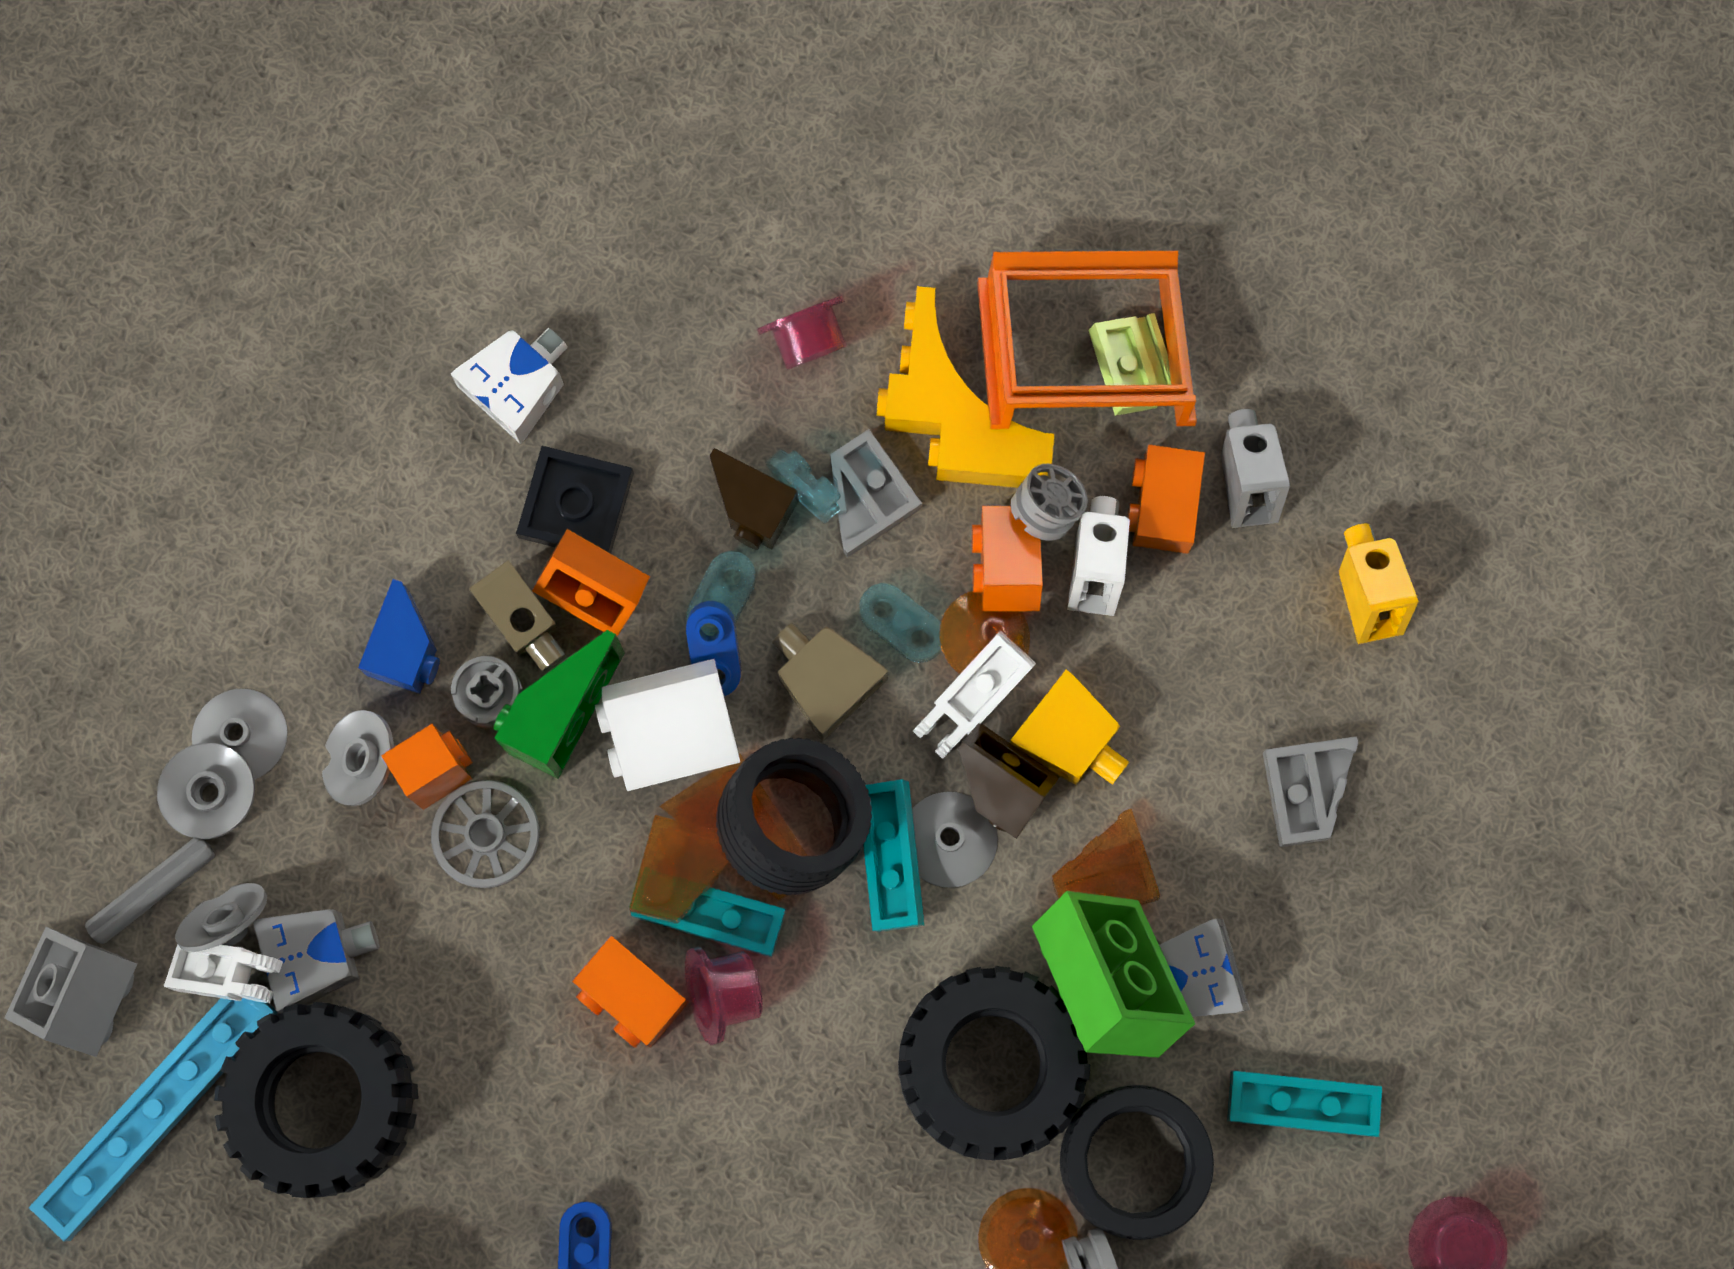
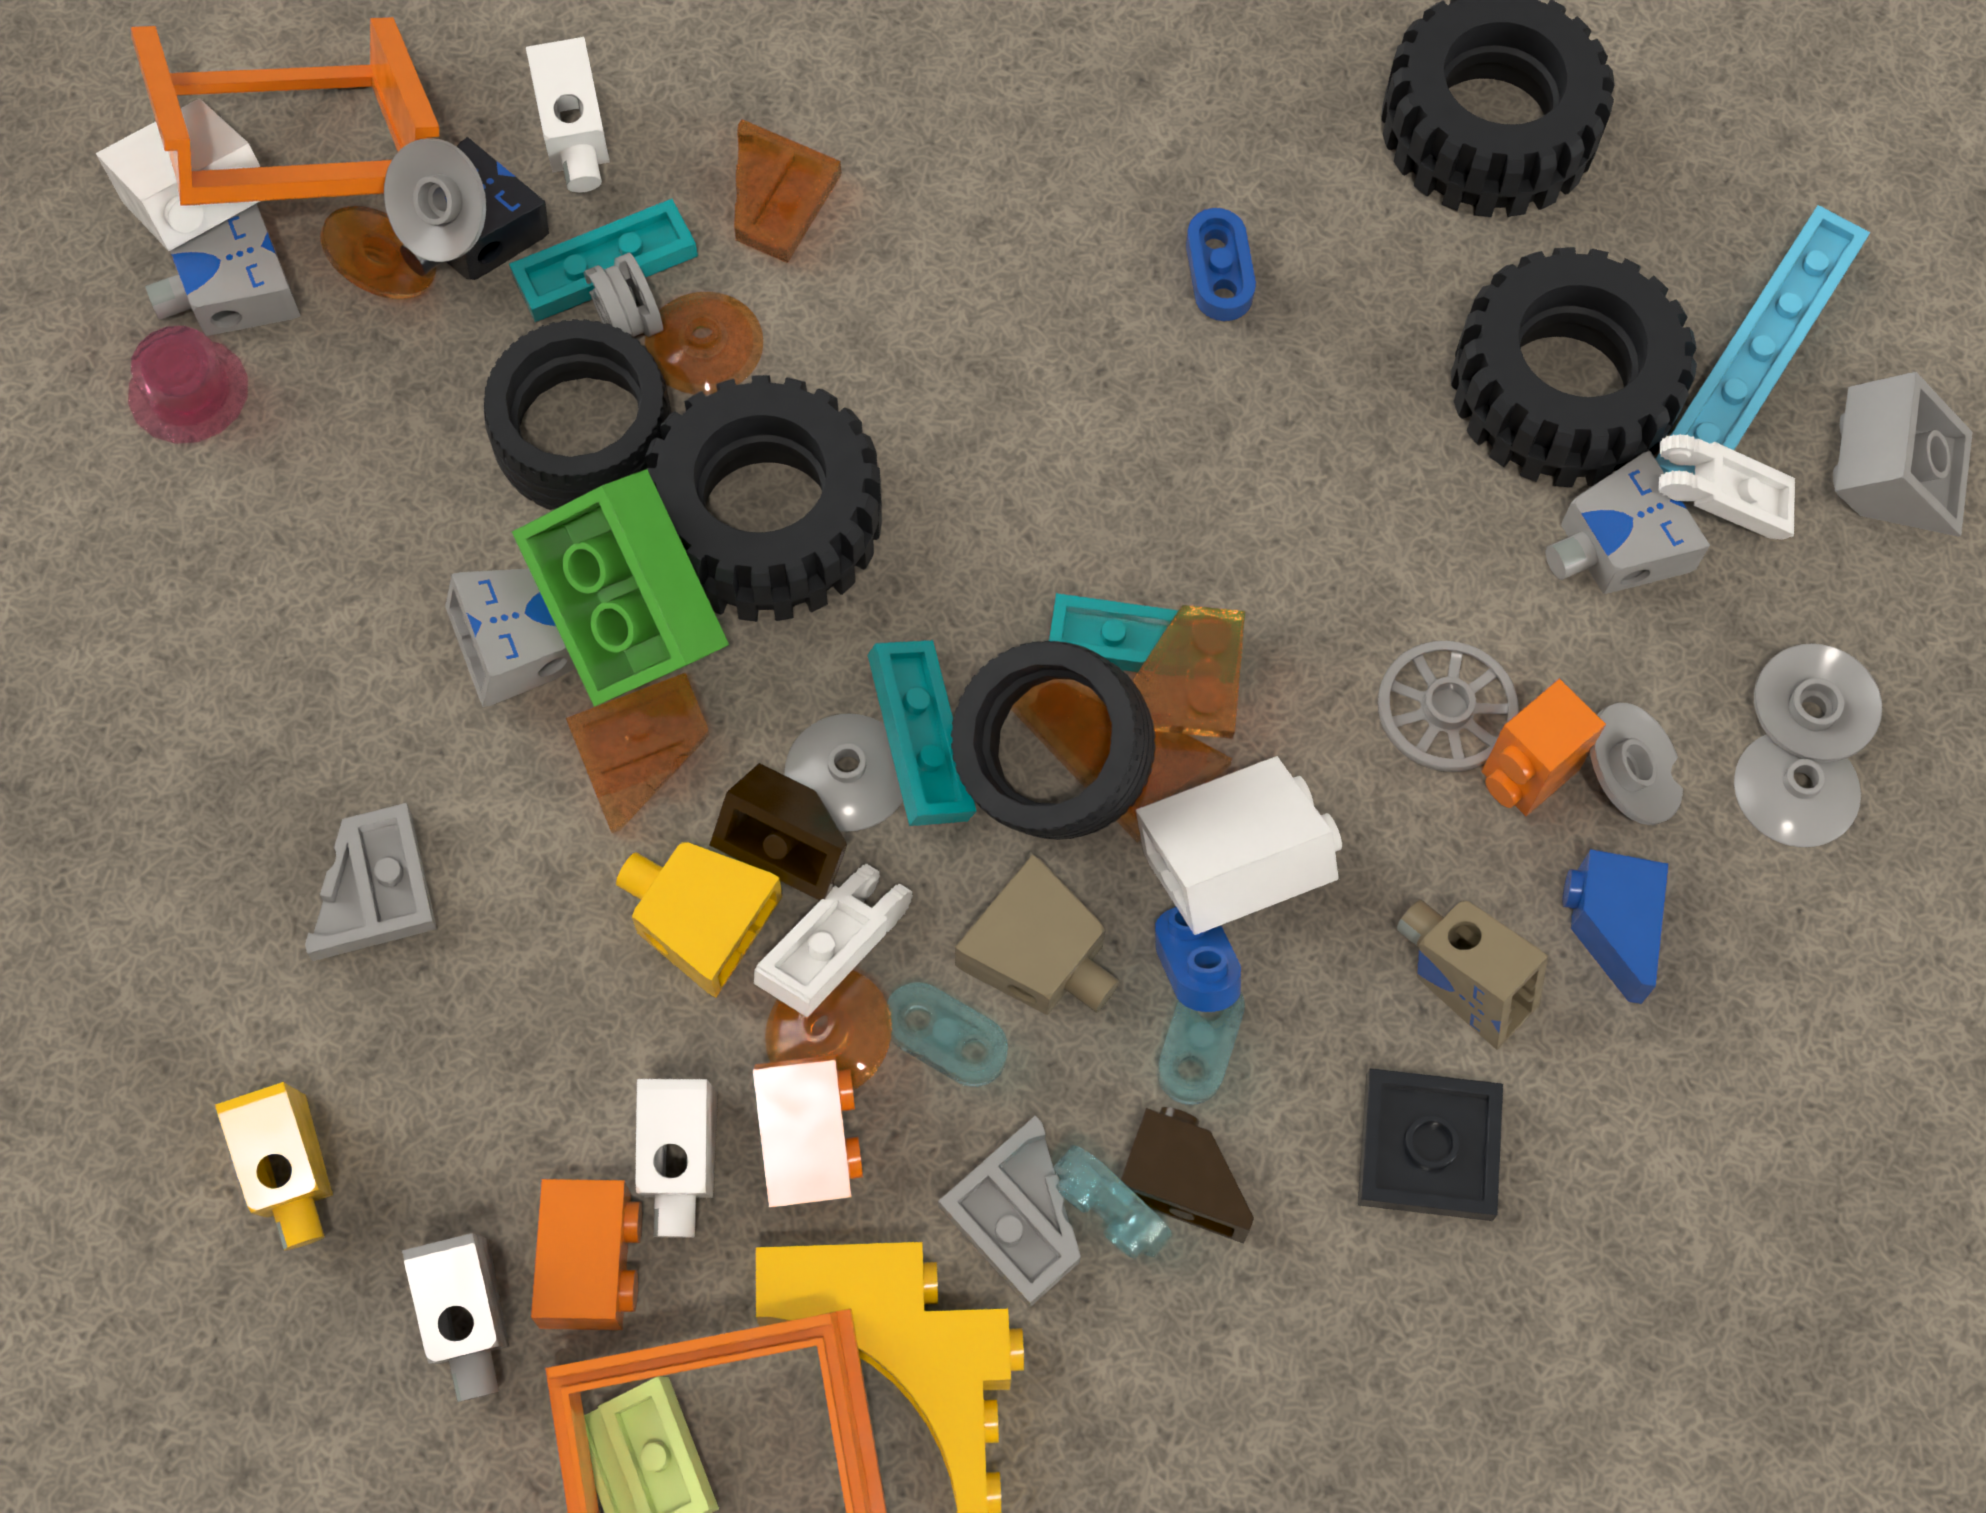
camera: 170 degrees right, 10 degrees down
(149, 890) = (1850, 584): light grey axle -> none
(222, 918) = (1749, 549): light grey dish -> none
(483, 688) = (1490, 869): light grey wheel -> none
(513, 380) = (1560, 1309): white torso -> none
(555, 709) = (1405, 815): green slope -> none
(591, 583) = (1382, 1014): orange brick -> none
(629, 993) = (1223, 533): orange brick -> none
(722, 992) = (1107, 539): clear pink piece -> none
(807, 333) = (1145, 1436): clear pink piece -> none
(1049, 504) = (754, 1201): light grey wheel -> none
(1304, 1103) = (374, 511): teal plate -> none

